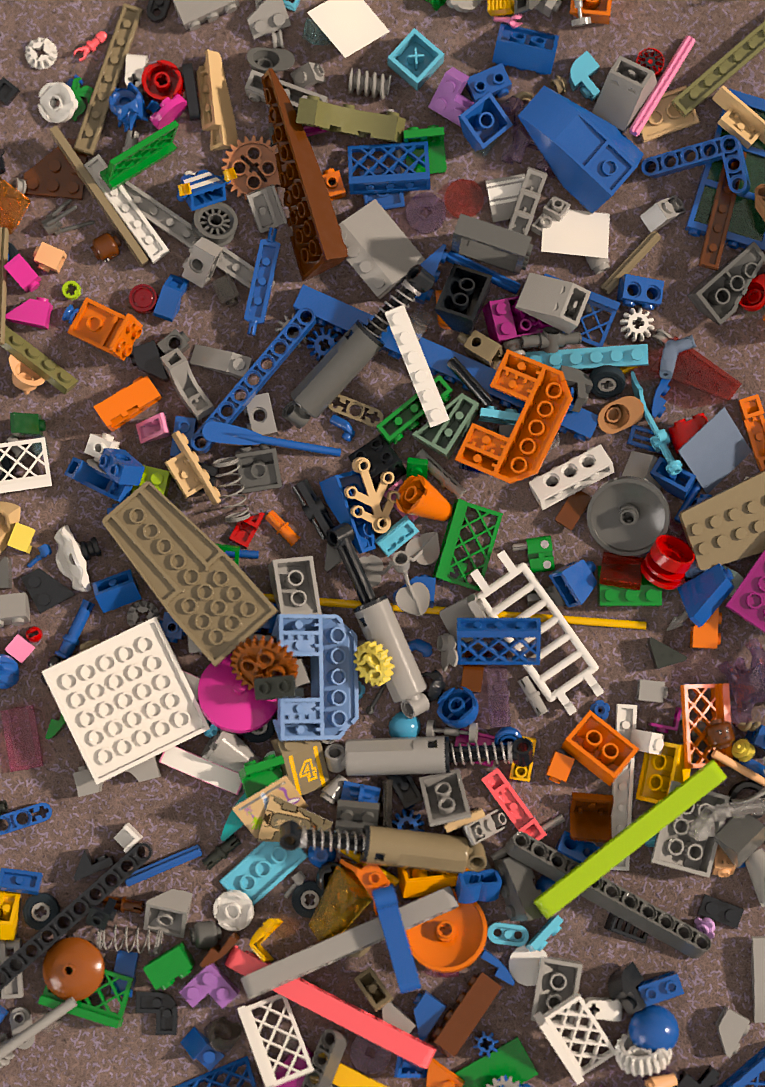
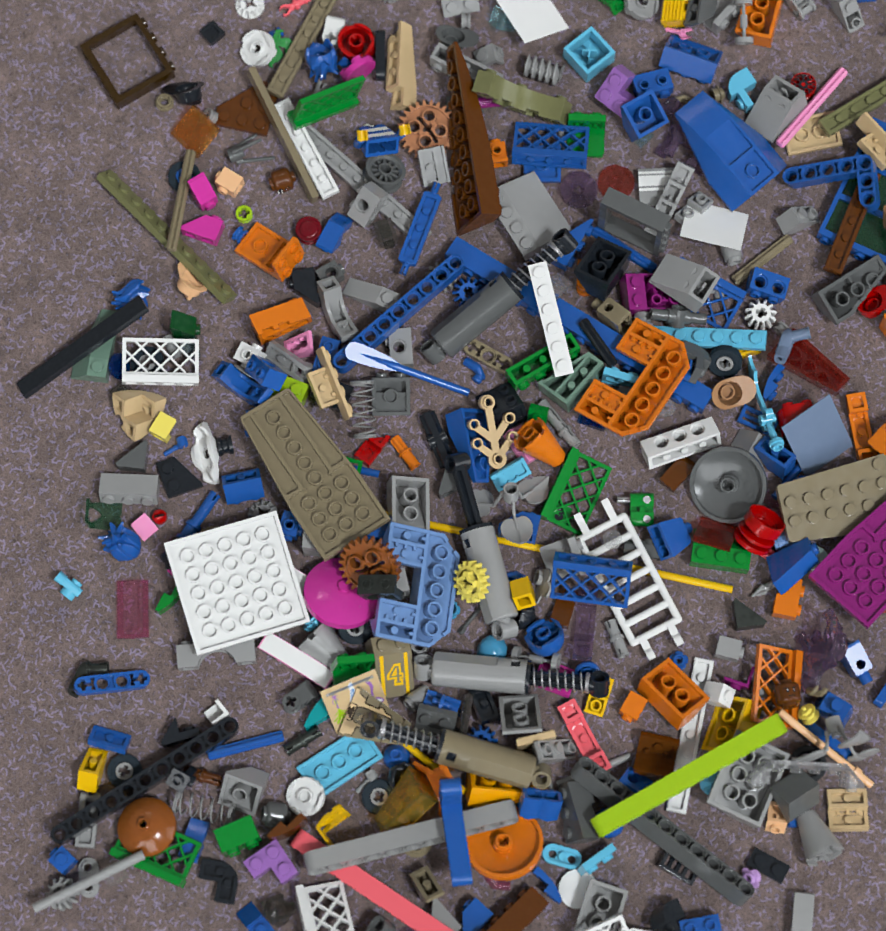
camera: 10 degrees right, 10 degrees down
(143, 448) = (288, 361): none -> light grey plate
(214, 804) = (302, 695): none -> dark grey piece
(428, 665) = (522, 593): none -> yellow brick
(514, 594) = (612, 539): none -> clear tile

